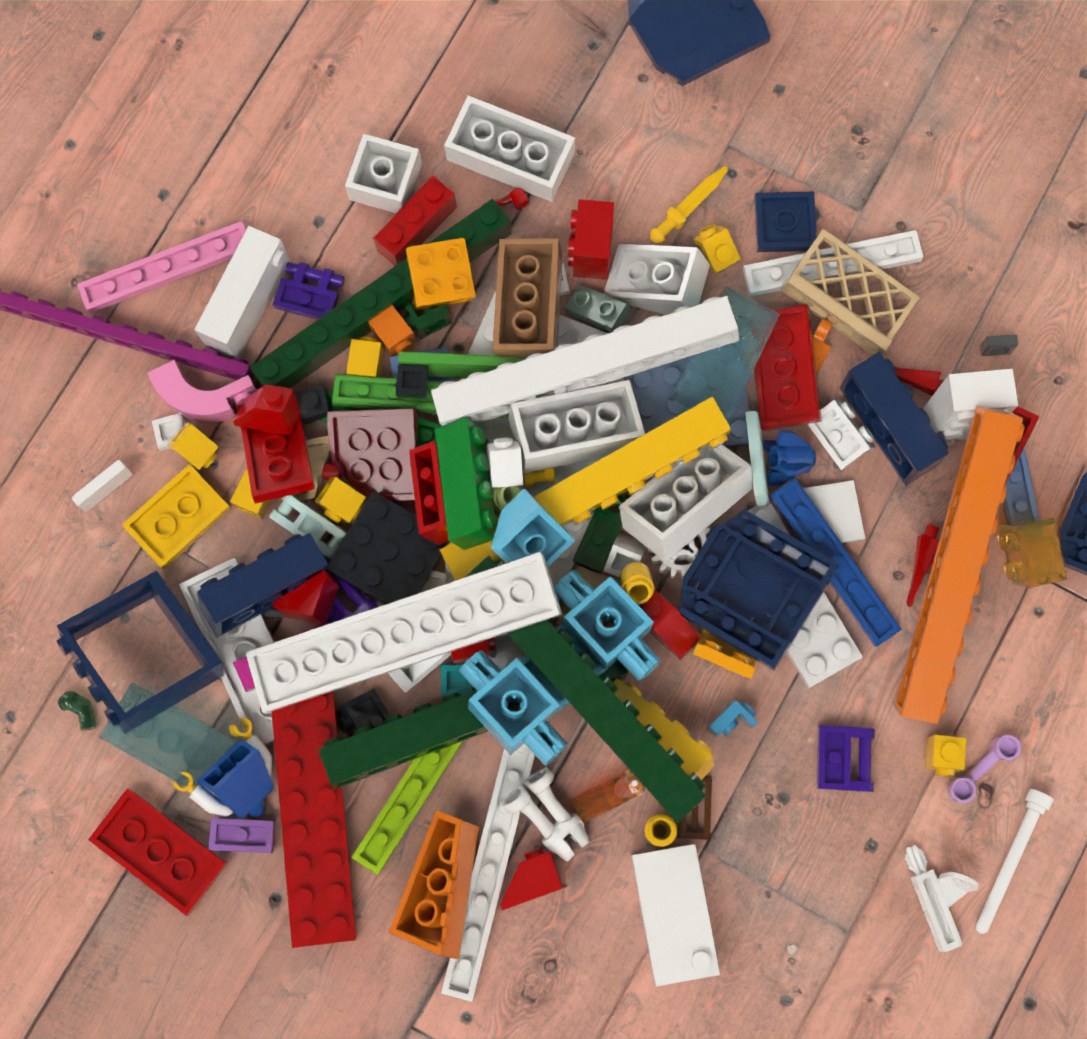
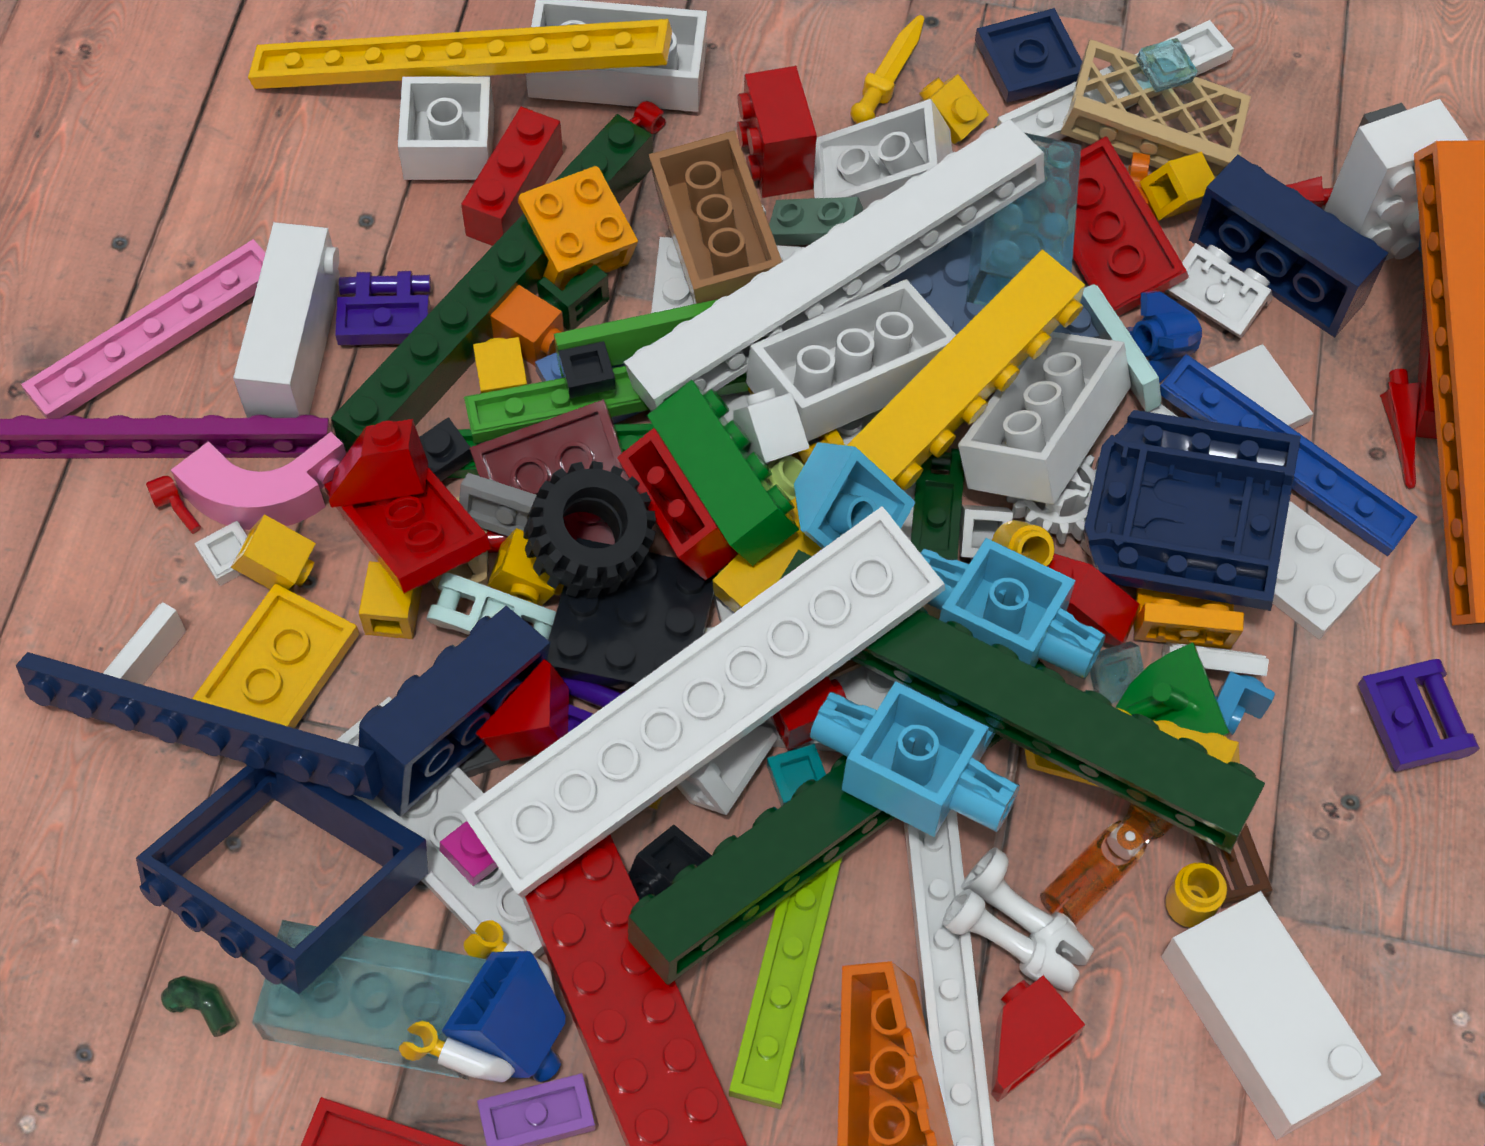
camera: 25 degrees left, 15 degrees down
(121, 553) = (201, 726): none -> dark blue plate
(142, 380) = (164, 492): none -> red hand
(335, 461) = (495, 504): none -> light grey plate
(401, 497) = (596, 493): none -> black tyre
(407, 128) = (462, 54): none -> yellow plate
(670, 676) = (1116, 670): none -> clear light blue plate
(694, 706) = (1177, 692): none -> green shield
(733, 685) = (1226, 659): none -> white tile
(842, 353) = (1178, 185): none -> yellow brick
(865, 264) = (1166, 65): none -> clear light blue plate

